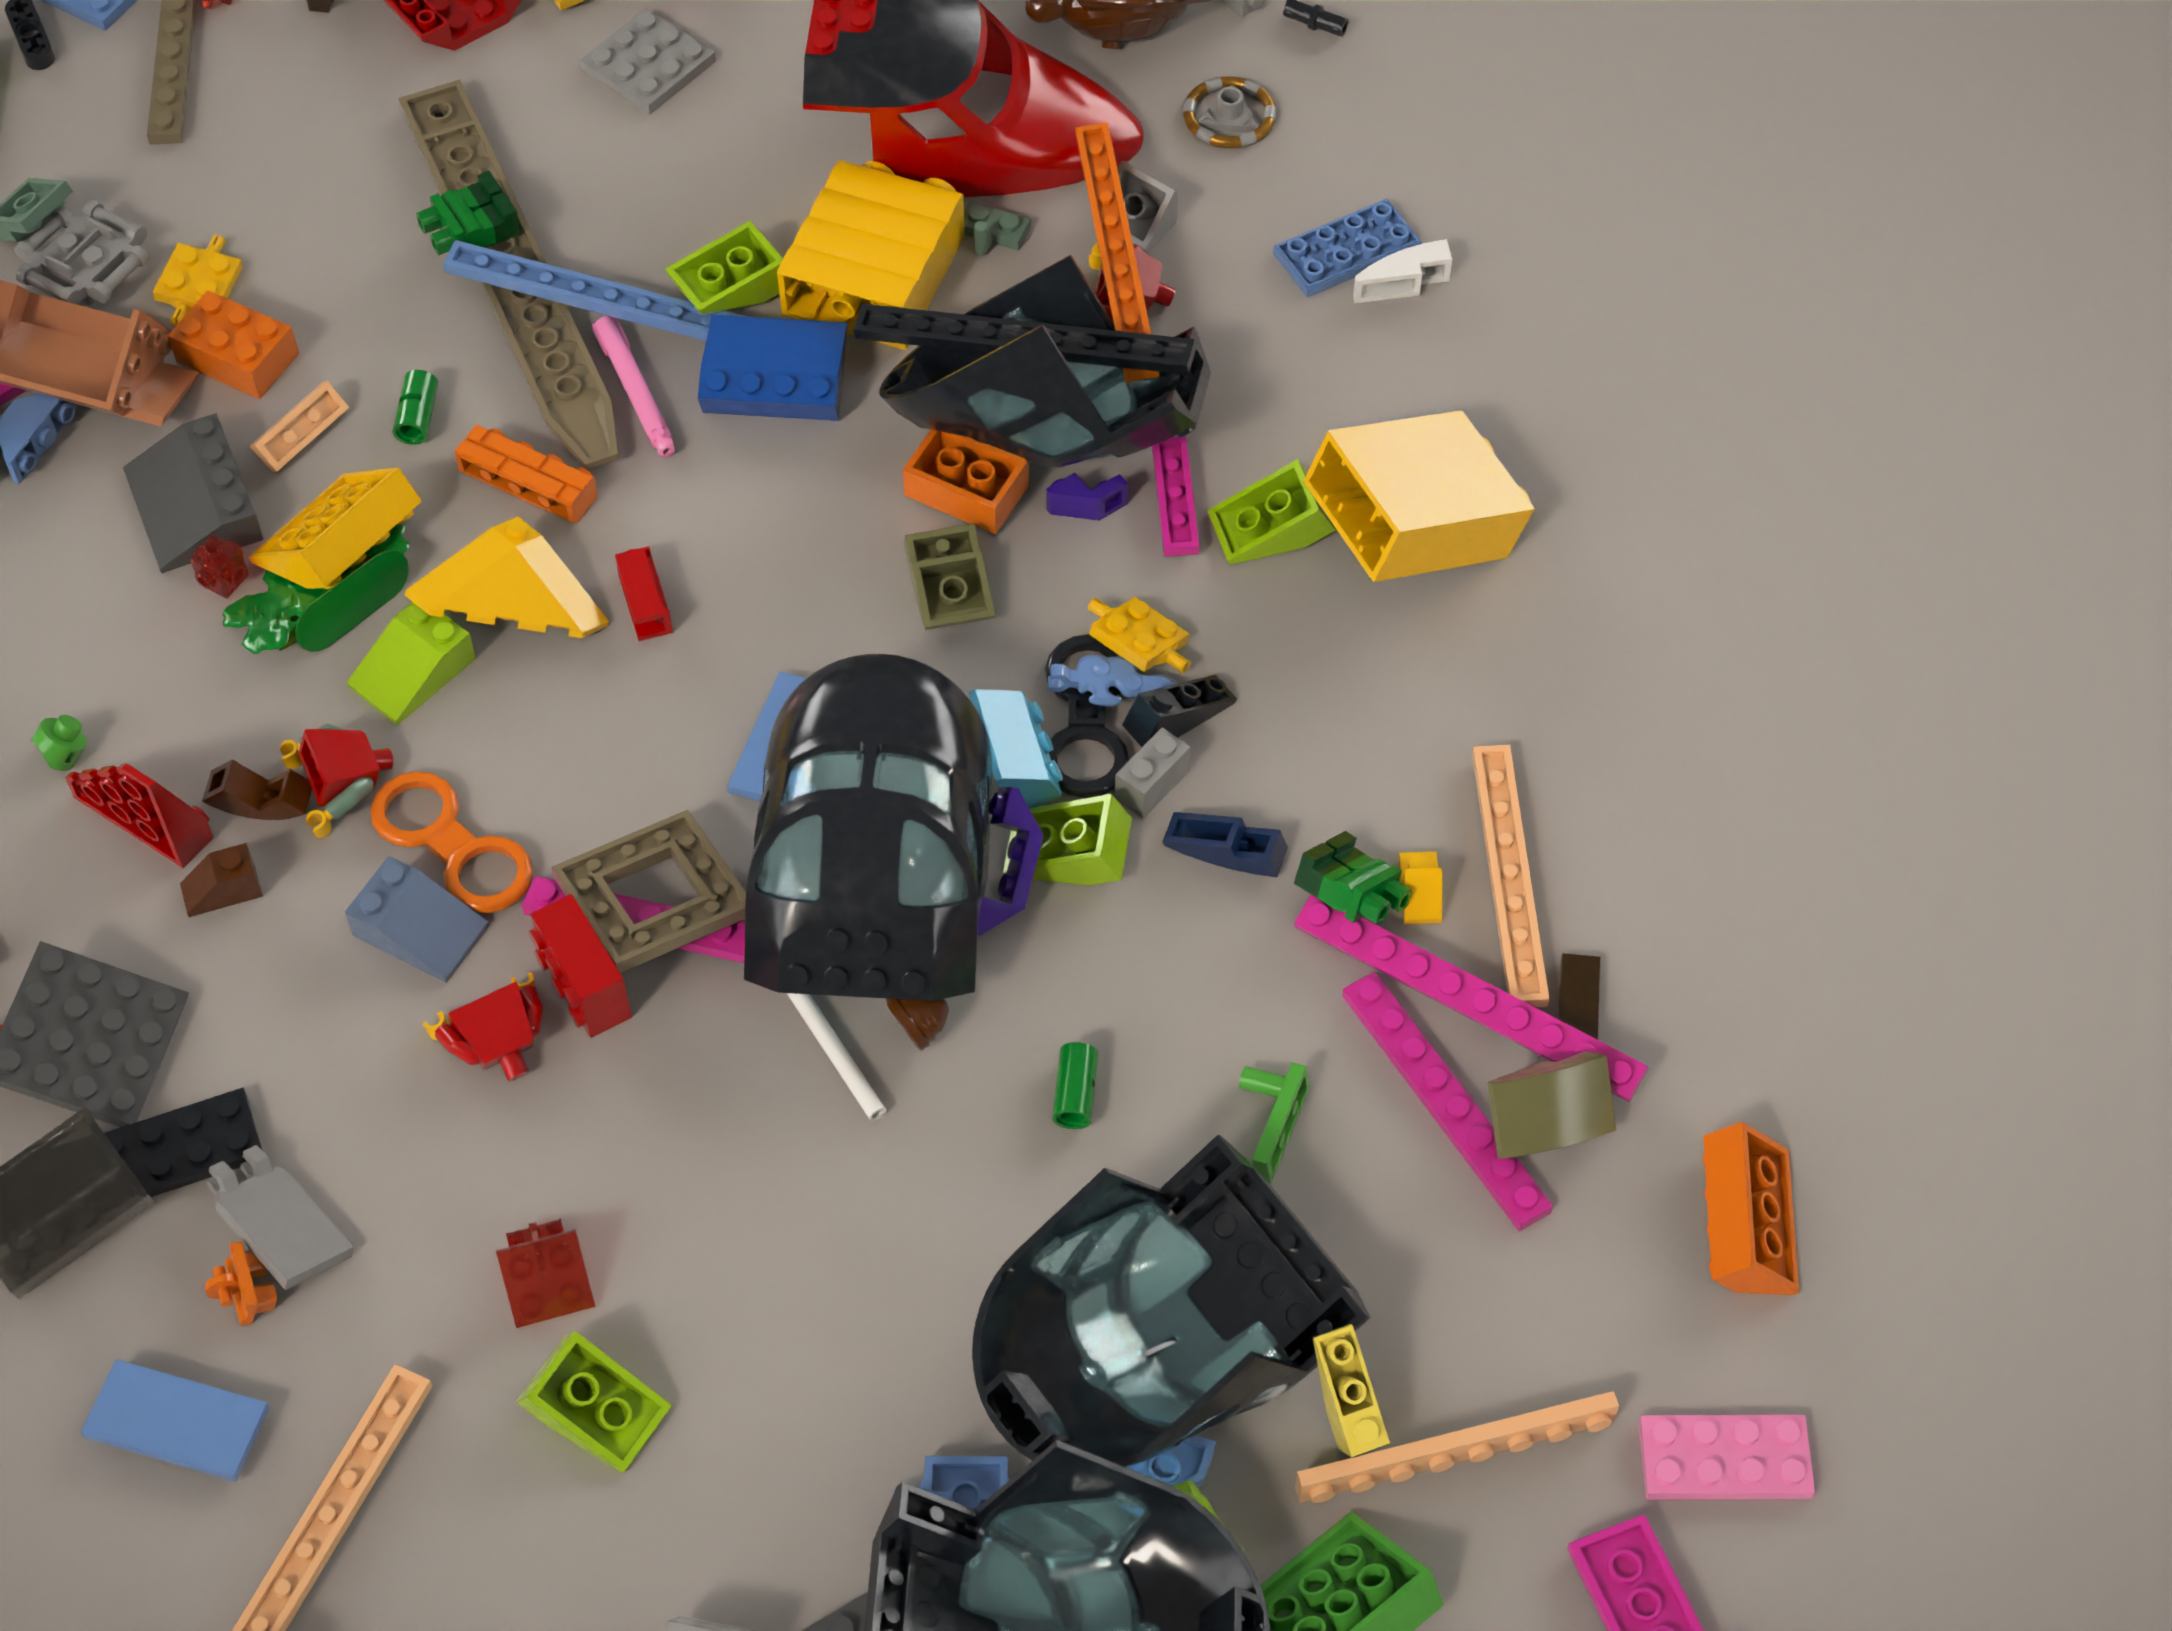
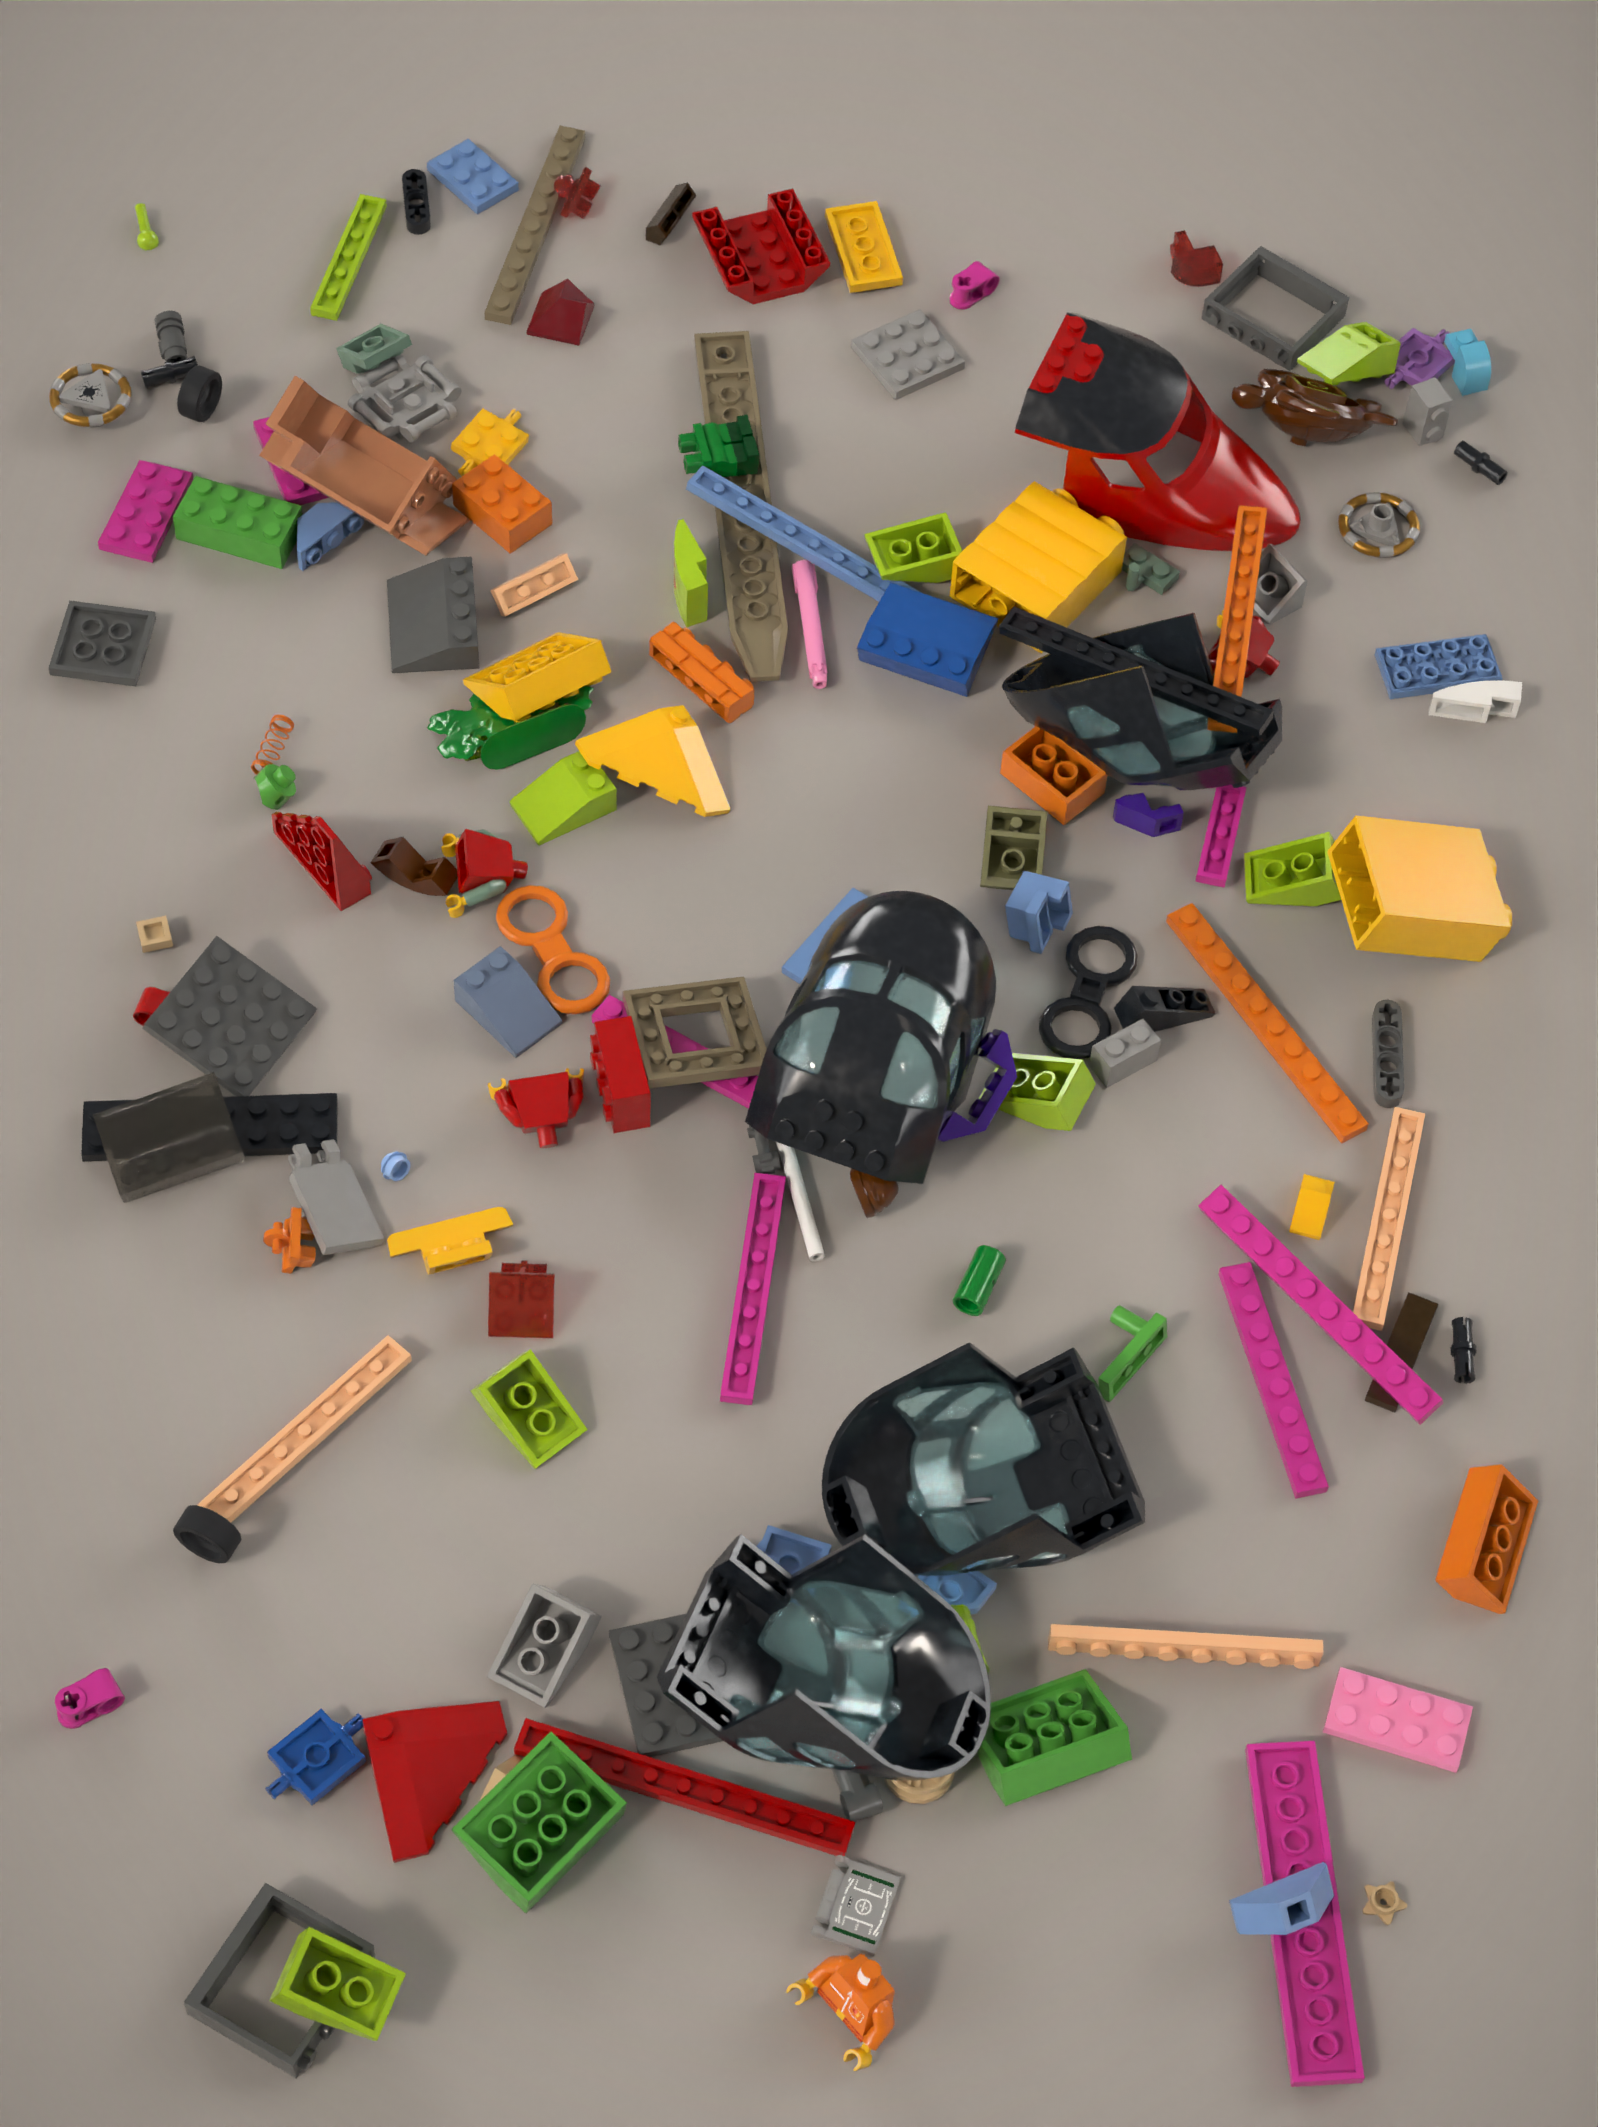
camera: 15 degrees right, 0 degrees up
(38, 718) = (278, 728): none -> orange piece
(175, 1420) = (213, 1327): medium blue tile -> none
(219, 566) = (438, 680): clear red brick -> none
(221, 881) = (367, 929): reddish brown slope -> none
(237, 115) = (561, 314): none -> dark red slope
(341, 1155) = (395, 1166): none -> light blue plate
(415, 407) = (630, 593): green pin -> none
(436, 1225) = (451, 1241): none -> yellow plate
(479, 369) = (689, 577): none -> lime slope
(643, 593) = (764, 794): red window -> none
(781, 1018) = (766, 1161): none -> dark grey bar
(815, 1177) = (753, 1289): none -> dark pink plate
(999, 634) = (1037, 908): none -> medium blue plate
(1018, 744) = (1022, 999): medium azure slope -> none
(1099, 673) = (1109, 961): medium blue piece -> none
(1139, 634) = (1152, 939): yellow plate -> none
(1227, 843) = (1166, 1126): dark blue slope -> none
(1302, 695) = (1267, 1023): none -> orange plate
(1348, 1393) = (1111, 1575): light yellow slope -> none
(1351, 880) = (1255, 1183): green hips -> none
(1441, 689) = (1387, 1053): none -> dark grey beam
(1551, 1105) = (1352, 1406): olive slope -> none
(1645, 1001) = (1463, 1350): none -> black pin

